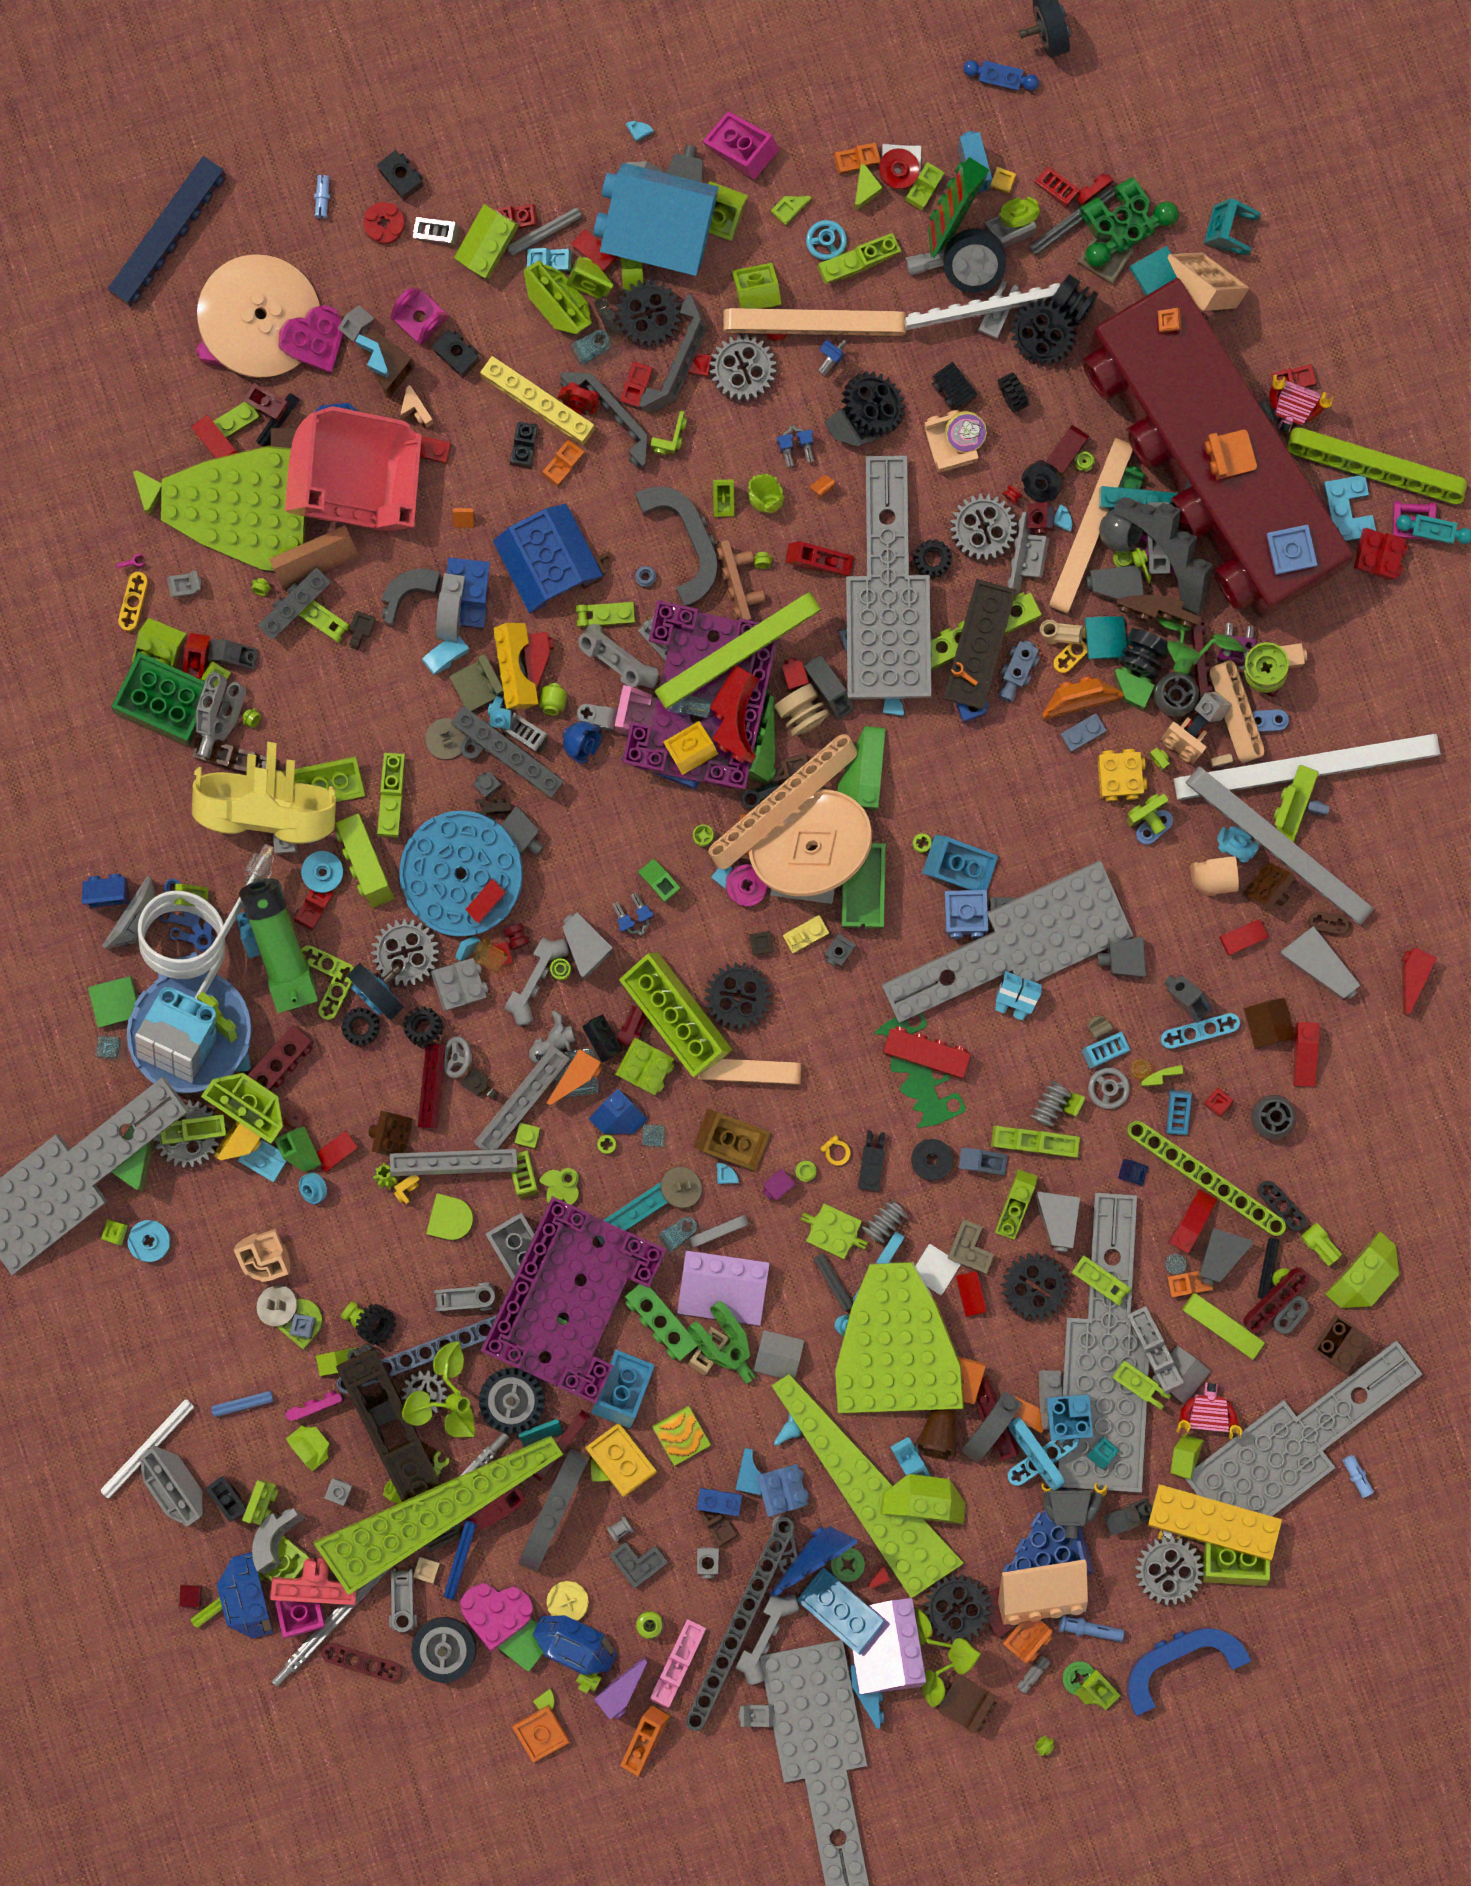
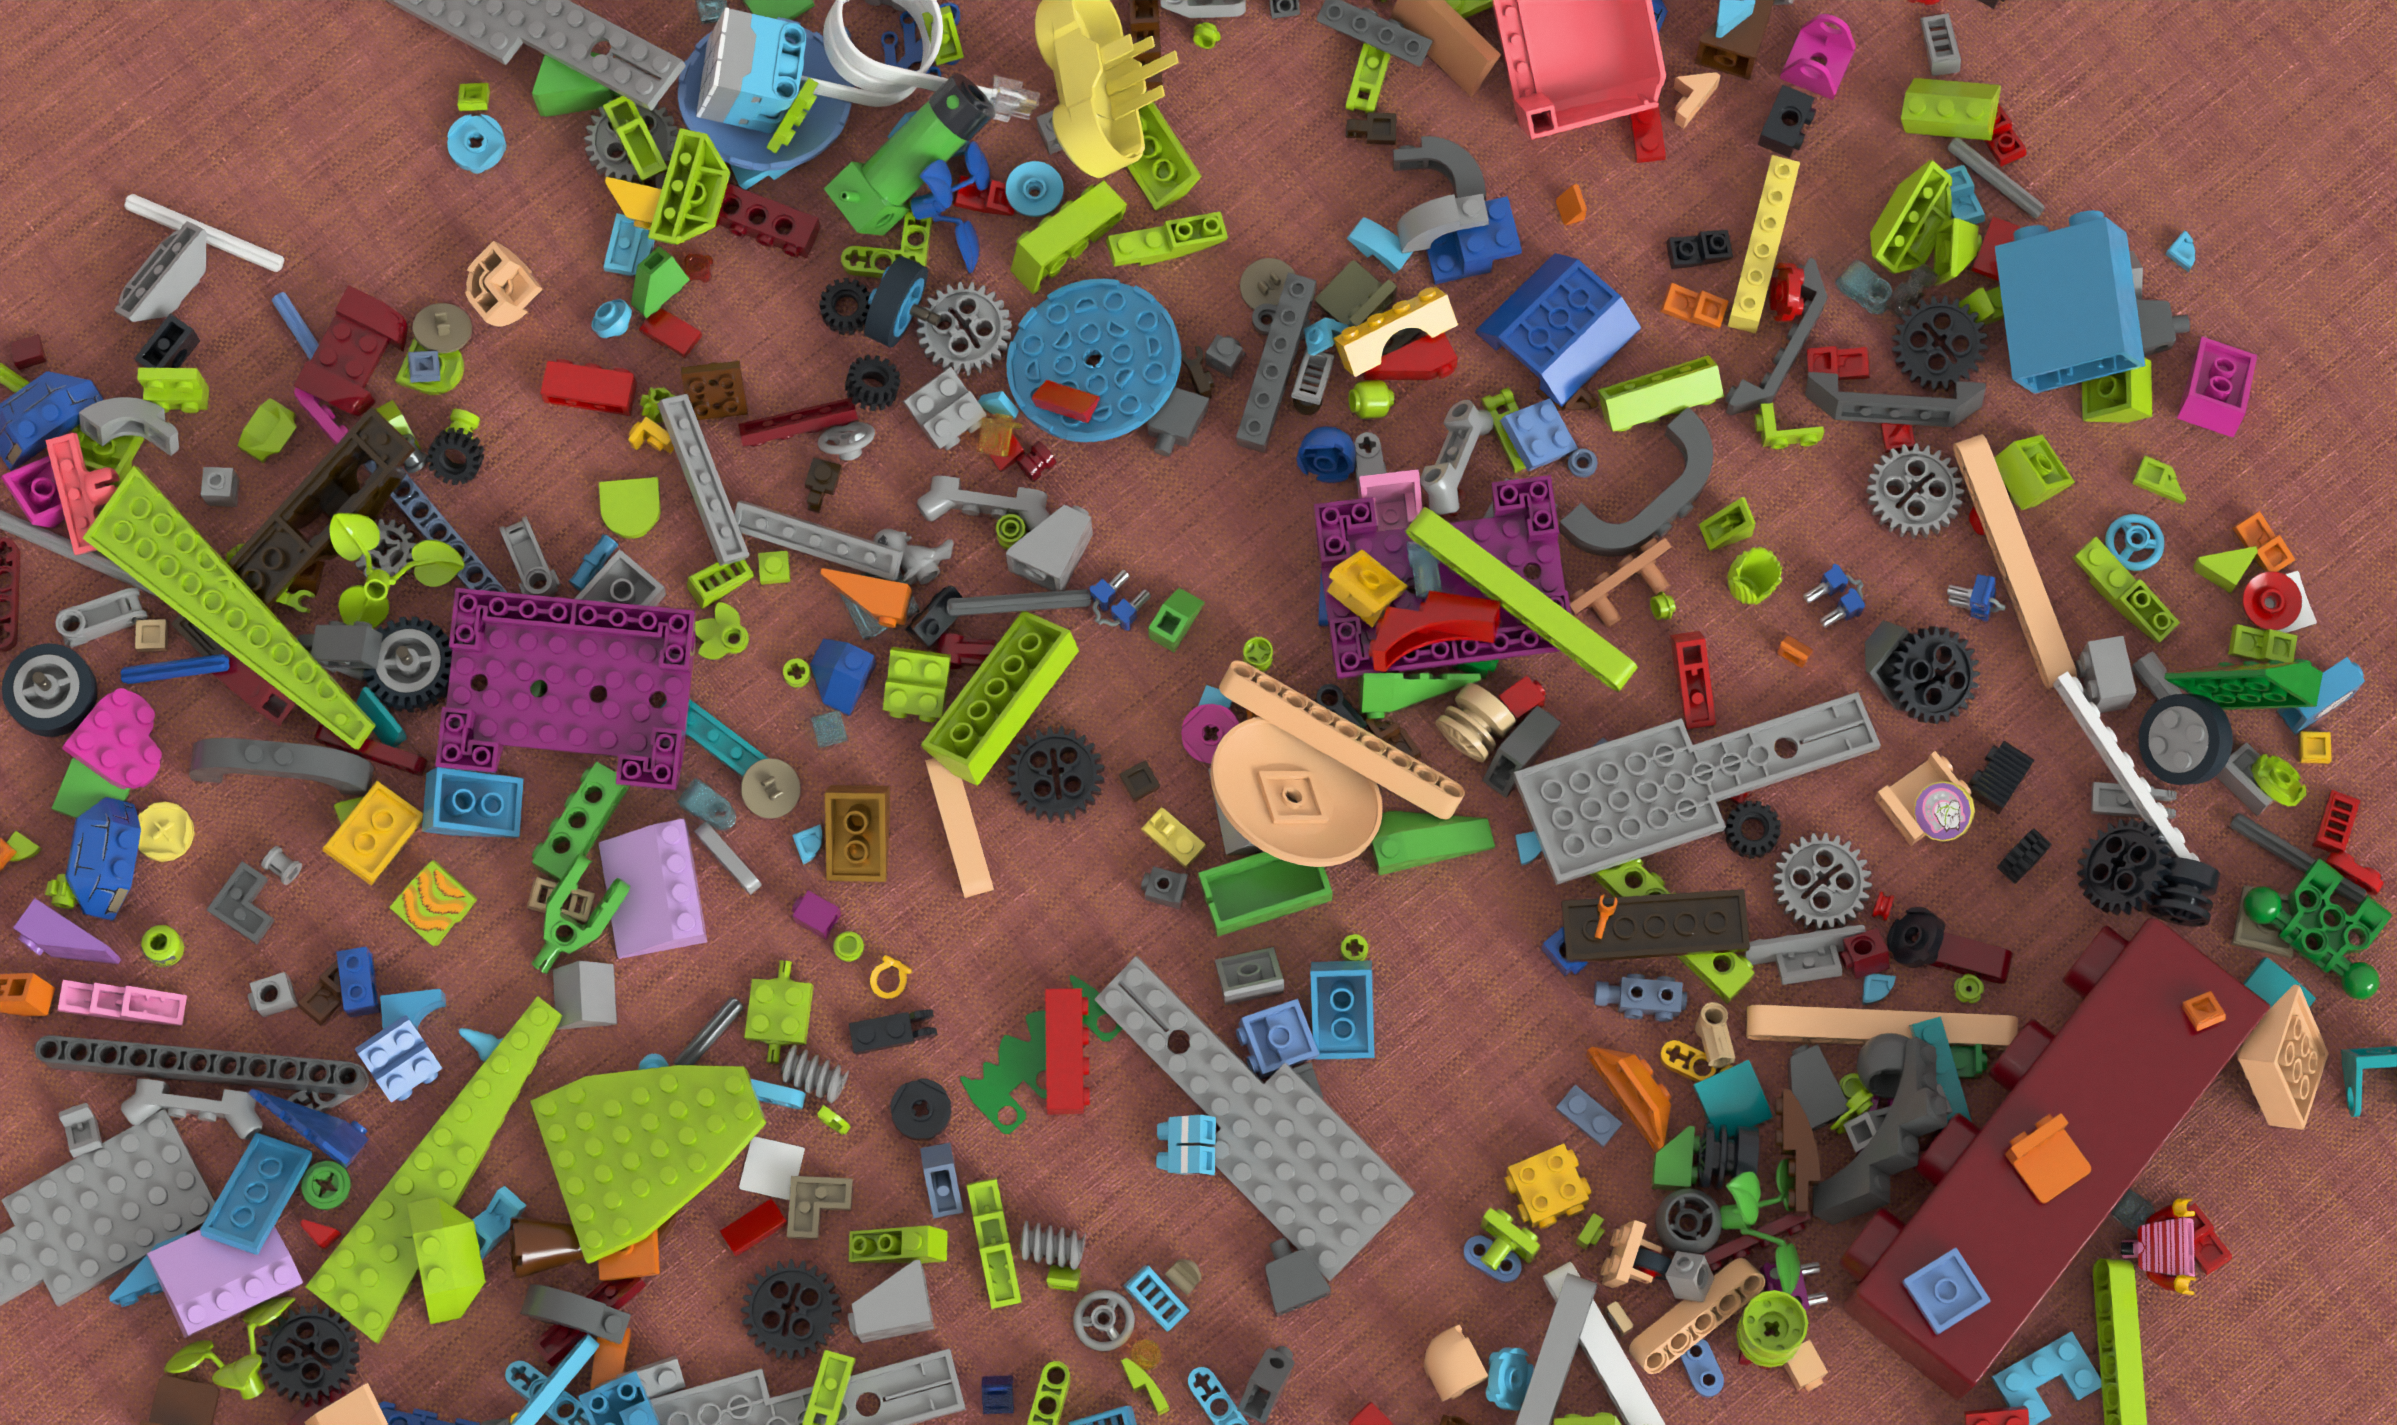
camera: 75 degrees right, 10 degrees down
(274, 1373) = (352, 351): none -> dark red piece
(312, 935) = (939, 180): none -> blue plant
(356, 1219) = (589, 387): none -> red brick
(482, 1255) = (593, 562): none -> dark azure pin
(487, 1440) = (344, 645): none -> dark grey hinge
(614, 980) = (1018, 602): none -> dark grey axle
(617, 597) = (1539, 434): none -> medium blue plate
(618, 507) = (1661, 393): none -> brick
(912, 293) = (2106, 674): none -> light grey brick
(916, 916) = (1249, 976): none -> light grey slope
(919, 1219) = (833, 1120): none -> lime tile

